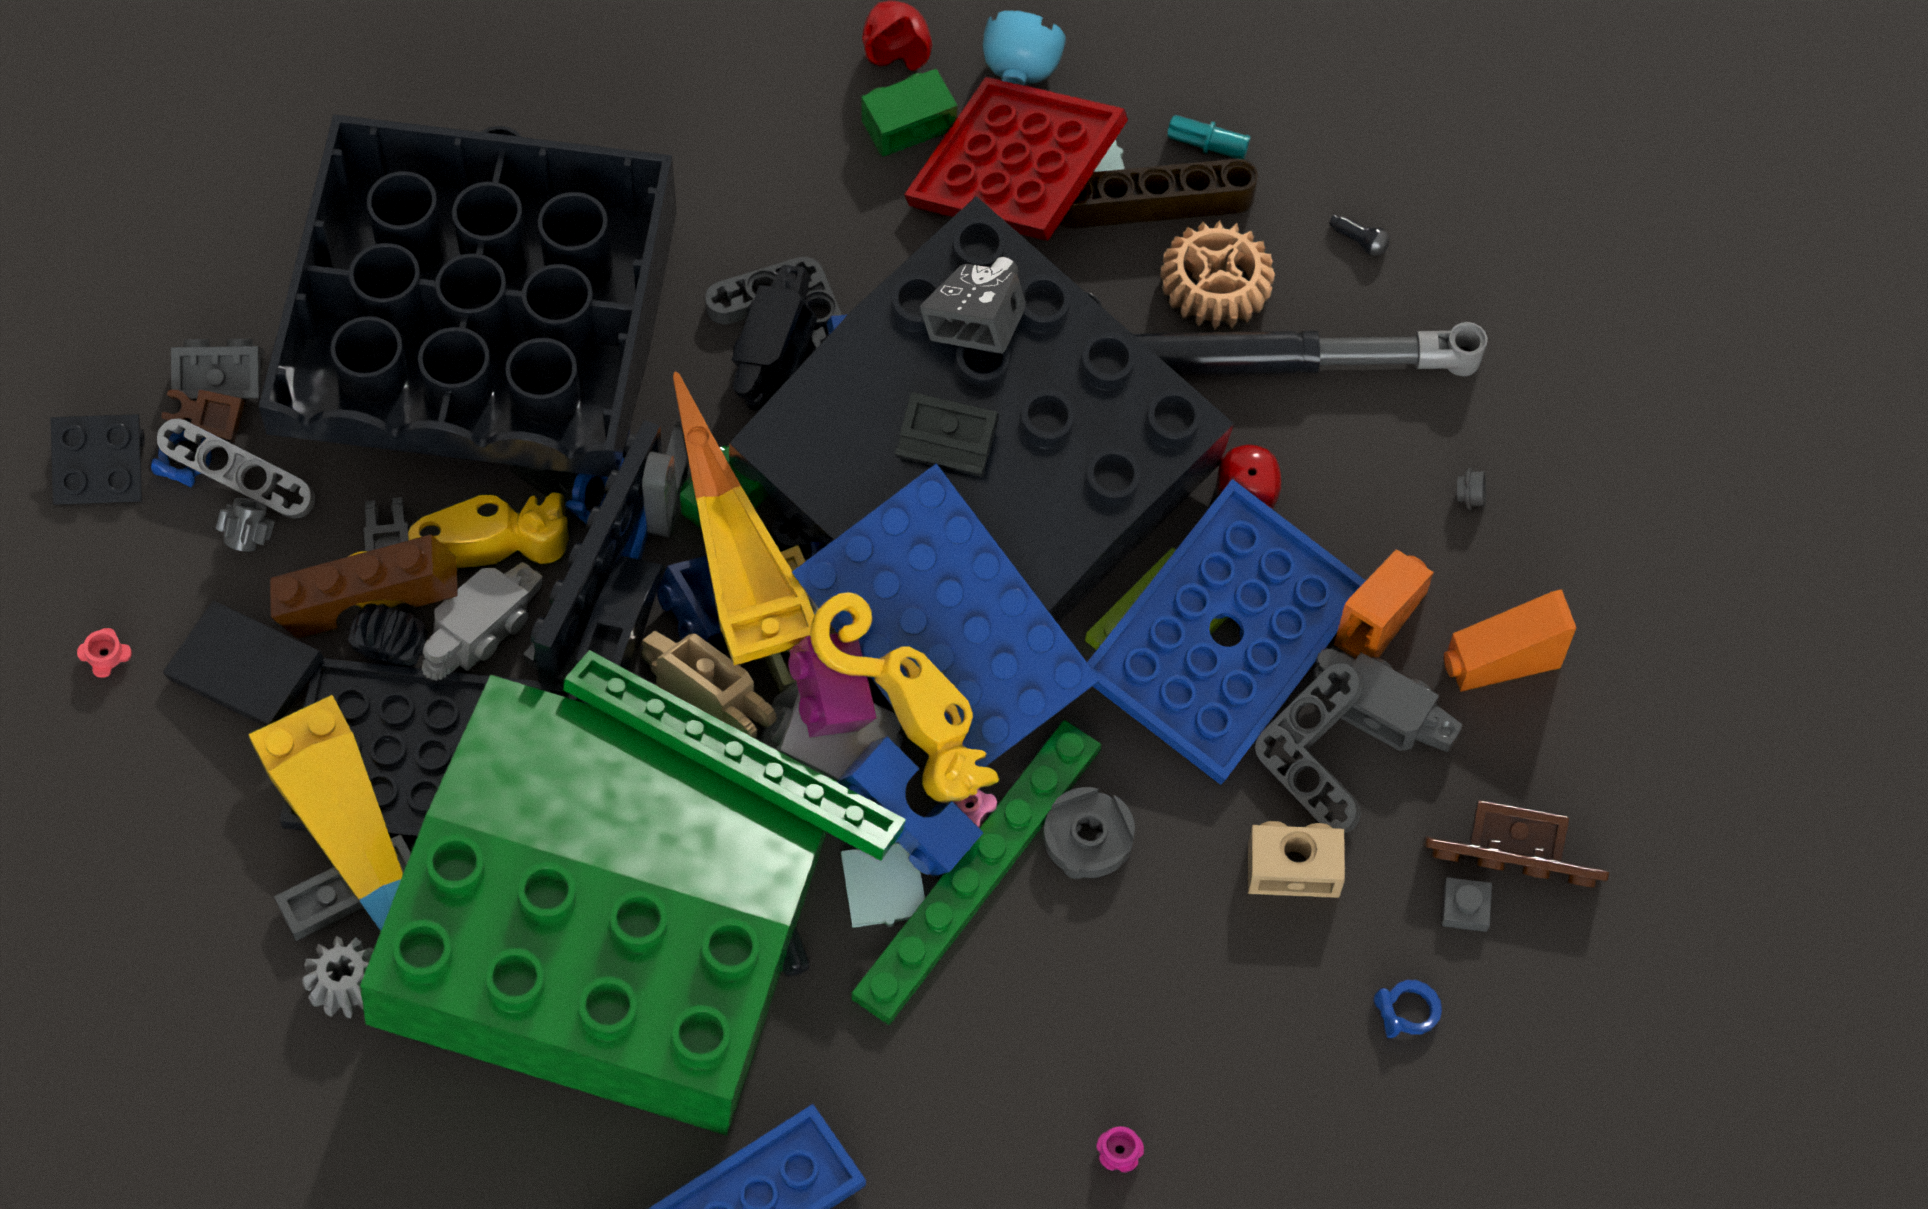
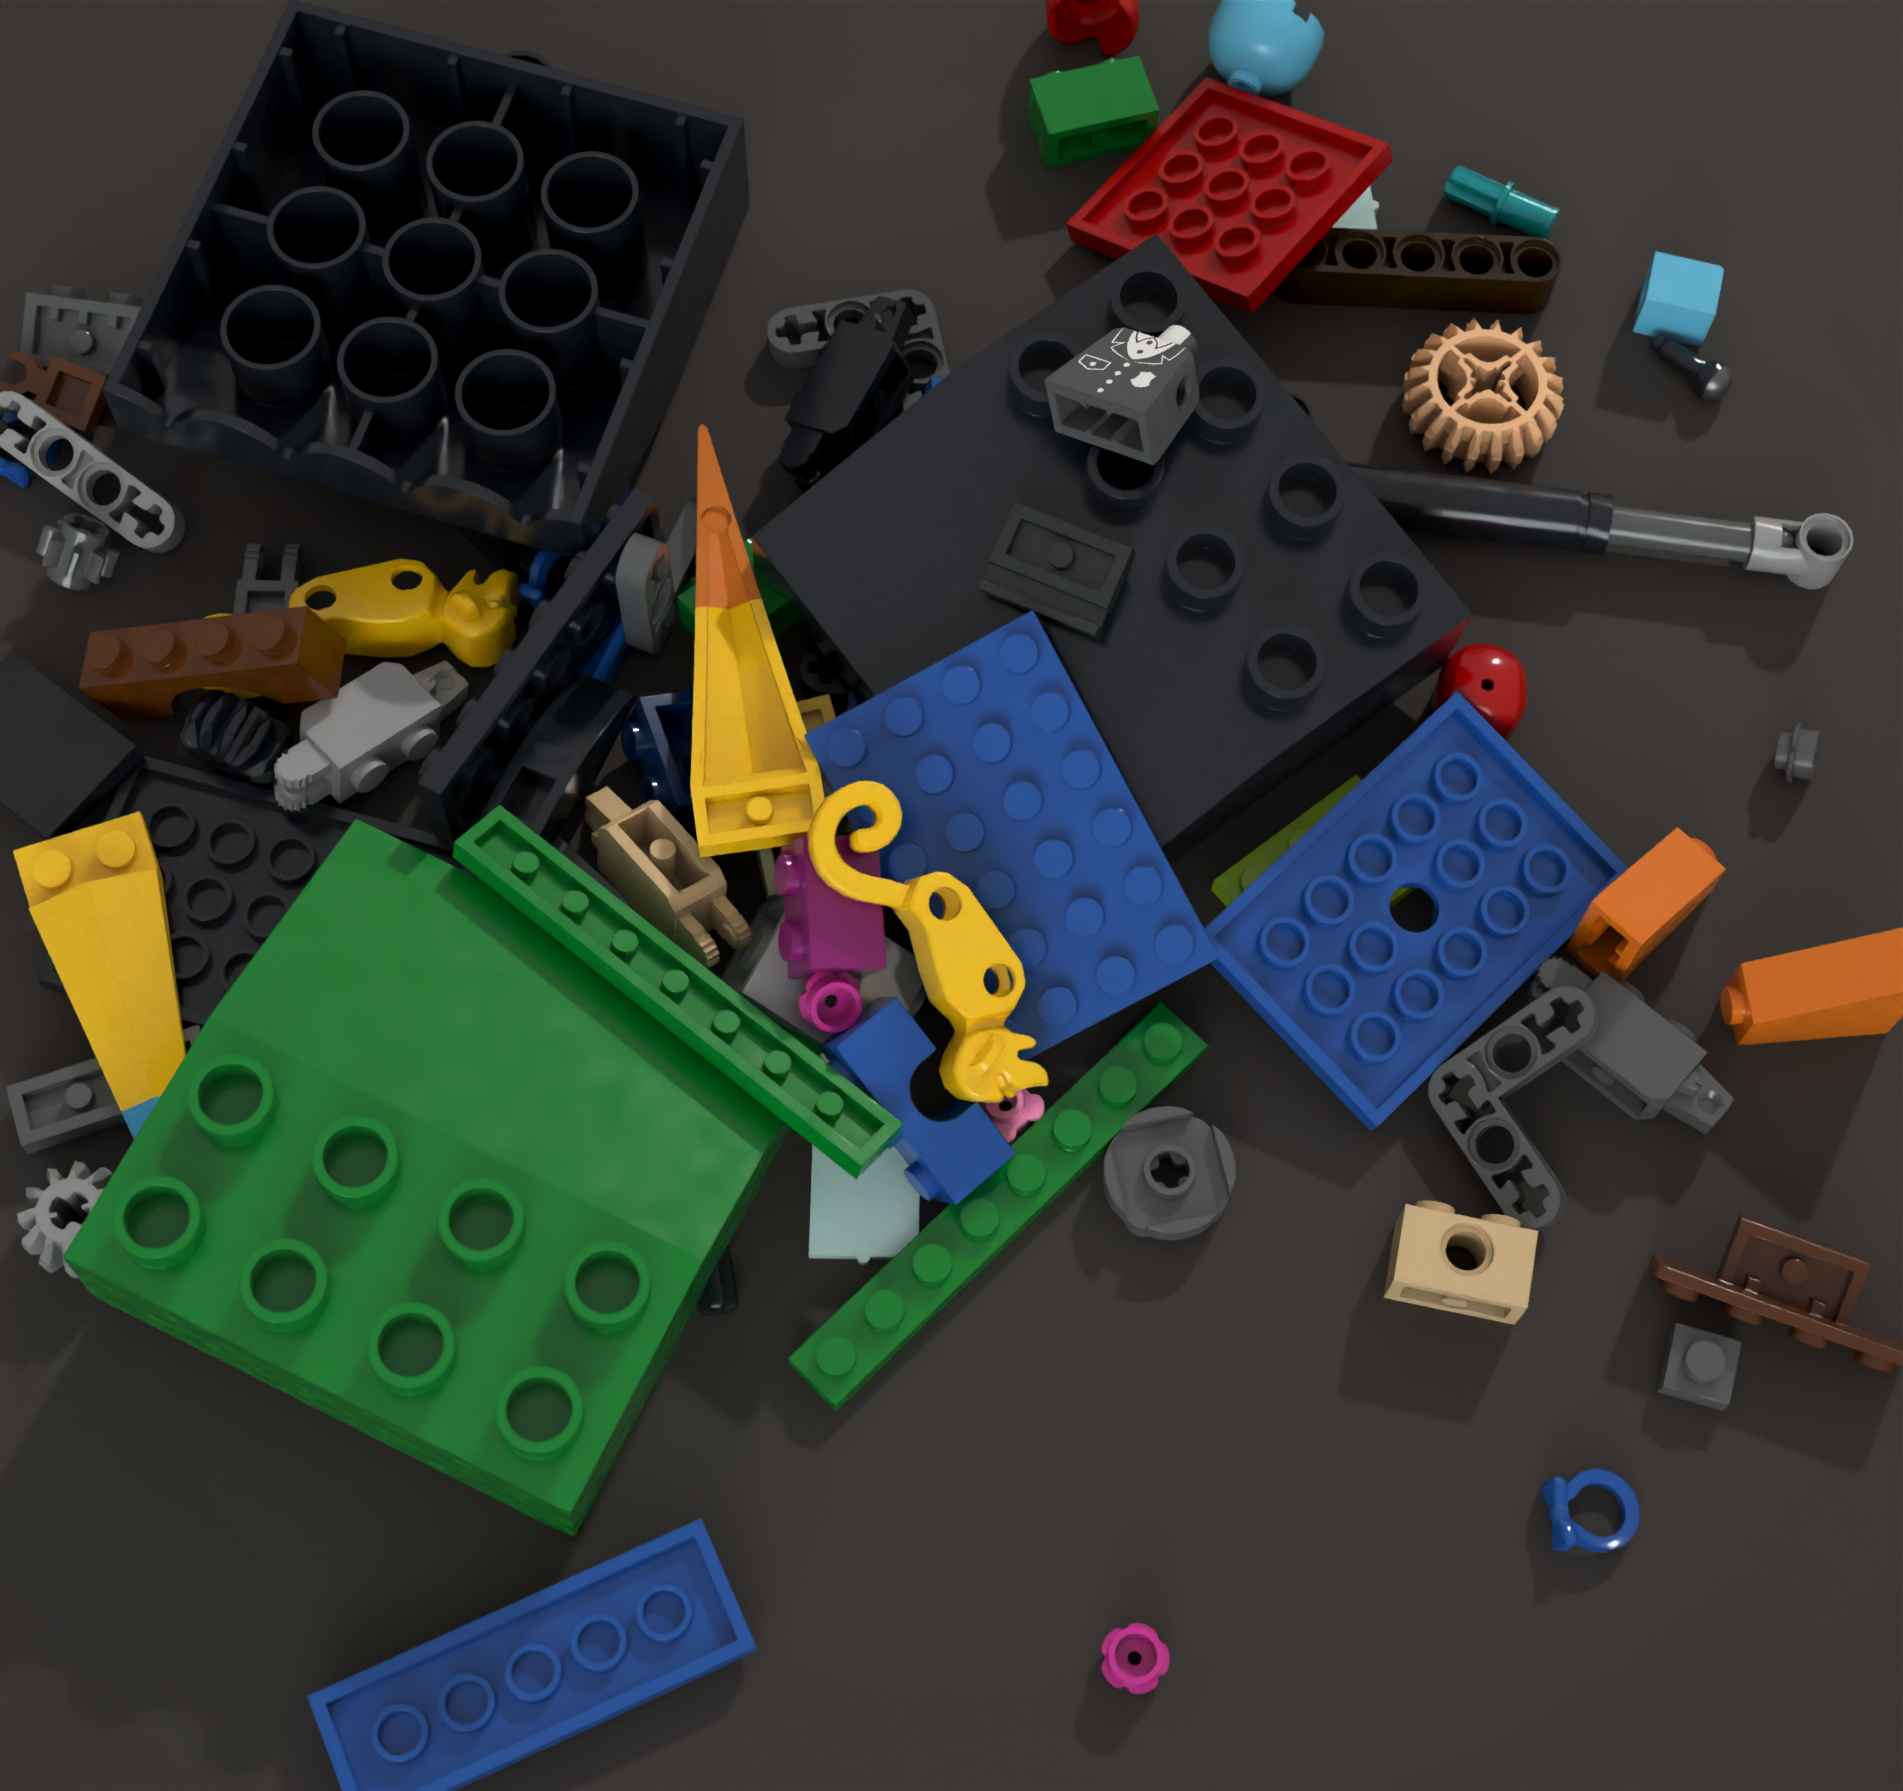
camera: 10 degrees right, 5 degrees up
(852, 750) = (832, 1017): none -> dark pink plate
(1343, 188) = (1678, 299): none -> medium azure panel

